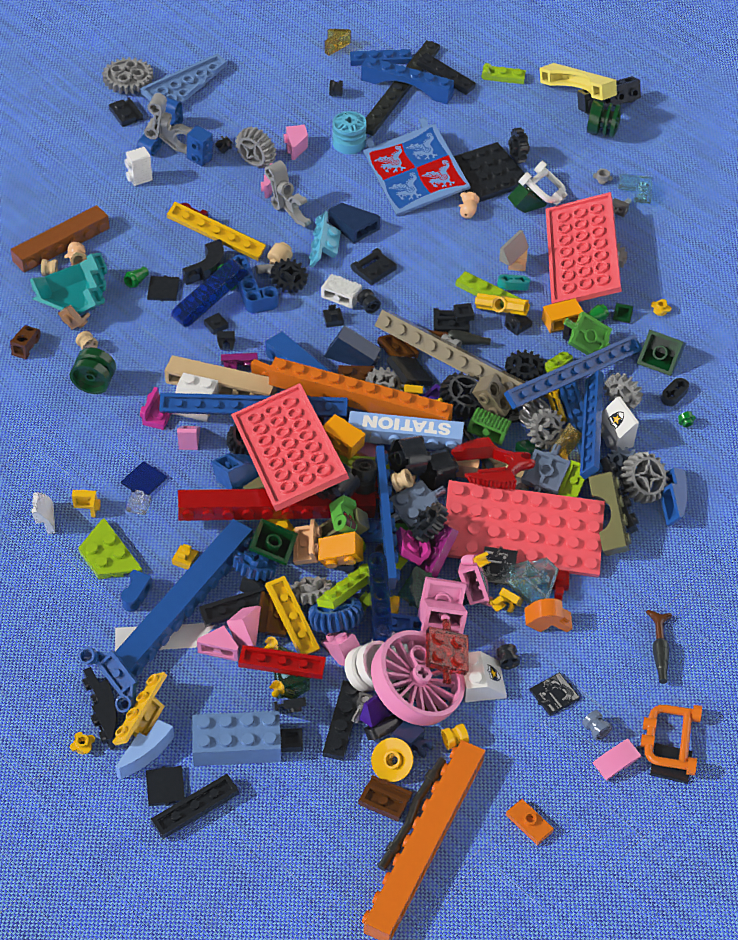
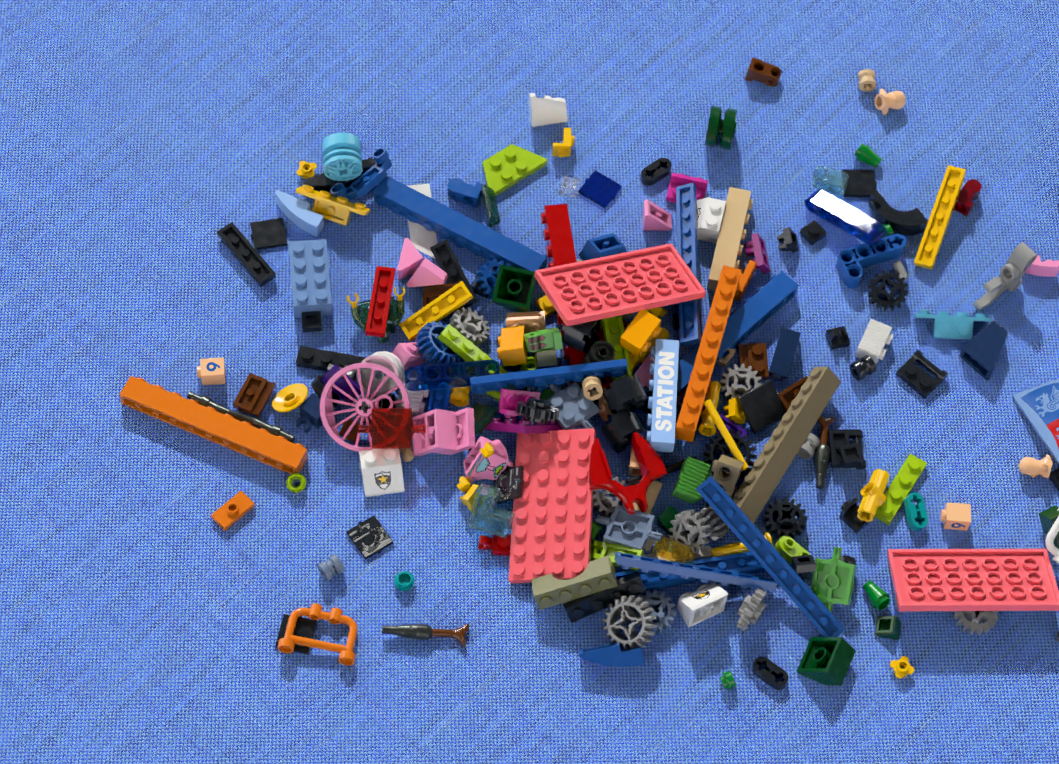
camera: 85 degrees right, 10 degrees up
(57, 239) = (912, 84): dark orange brick -> none
(72, 318) = (795, 102): medium nougat bracket -> none
(75, 286) = (838, 101): teal panel -> none
(86, 340) = (767, 122): tan wheel -> none
(91, 687) = (342, 156): none -> medium azure wheel
(127, 434) = (658, 173): none -> black beam
(138, 166) = (1028, 138): white brick -> none
(160, 569) = (490, 206): none -> slope
(162, 303) = (831, 180): none -> clear light blue piece
(185, 556) = (509, 228): yellow tile -> none
(279, 251) = (919, 281): tan head -> none
(291, 705) = (340, 312): black plate -> none
(354, 840) = (212, 371): none -> light nougat brick
(448, 388) = (725, 433): none -> yellow bar
(453, 736) = (316, 450): yellow wheel -> none
(496, 753) = (296, 476): none -> lime plate
(508, 656) = (405, 494): black wheel -> none
(513, 248) = (954, 502): light grey slope -> none
(546, 613) = (451, 531): orange brick -> none
(555, 314) = (870, 559): light orange brick -> none
(576, 350) = (804, 565): none -> black tile
(605, 662) = (404, 581): none -> teal plate
(616, 759) = (294, 583): bright pink slope -> none

